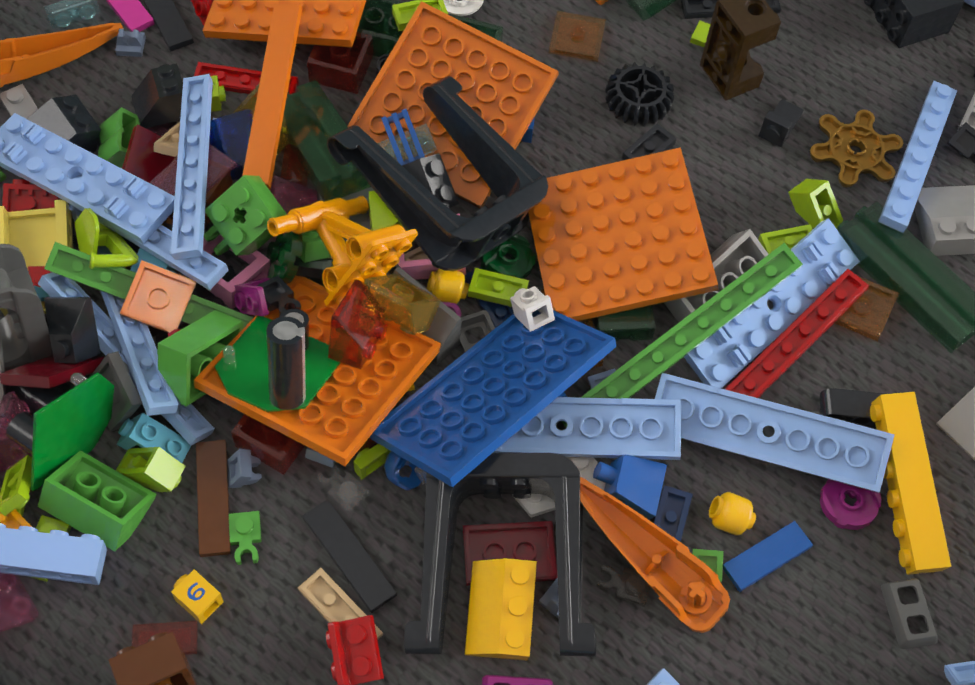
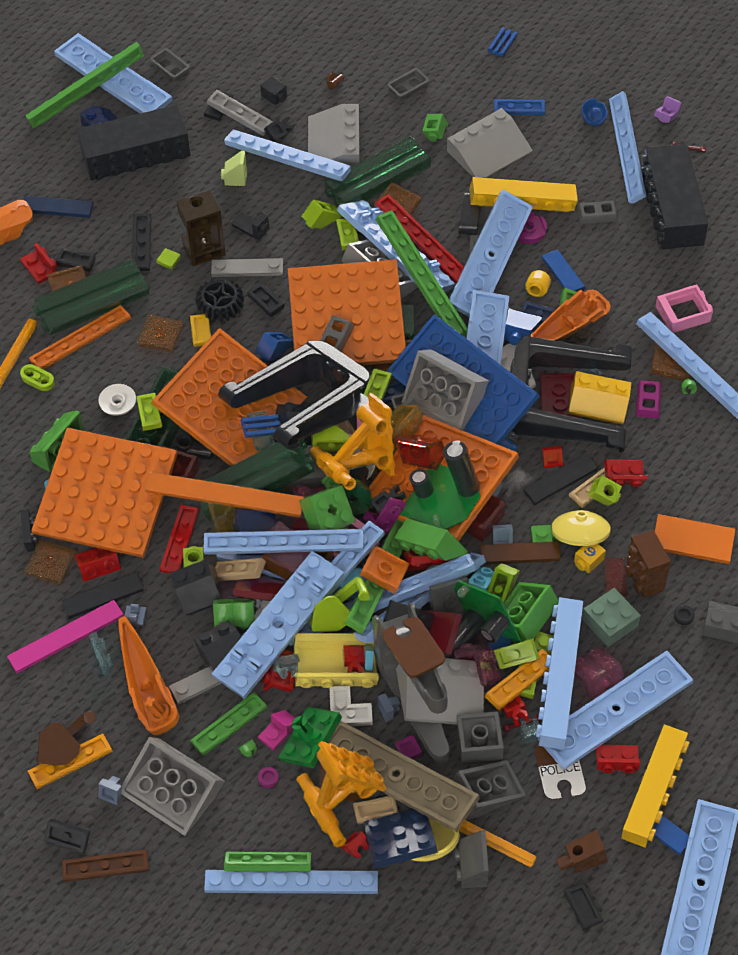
camera: 80 degrees left, 5 degrees down
(25, 193) = (286, 663): none -> clear light blue tile
(80, 628) = (611, 617): none -> sand green brick
(233, 591) = (580, 528): none -> light yellow dish
(324, 607) = (597, 491): none -> lime brick
(388, 540) = (552, 456): none -> red tile
(478, 361) = (444, 389): none -> light grey slope
(529, 300) = (400, 363): white brick -> none
(562, 155) = (273, 345): none -> blue slope
(566, 226) = (341, 337): none -> dark grey piece
(586, 79) = (200, 329): none -> yellow tile
(706, 126) = (247, 267): none -> light grey plate
(858, 134) = (276, 179): pearl gold plate -> none
(873, 94) = (235, 170): none -> yellowish green slope

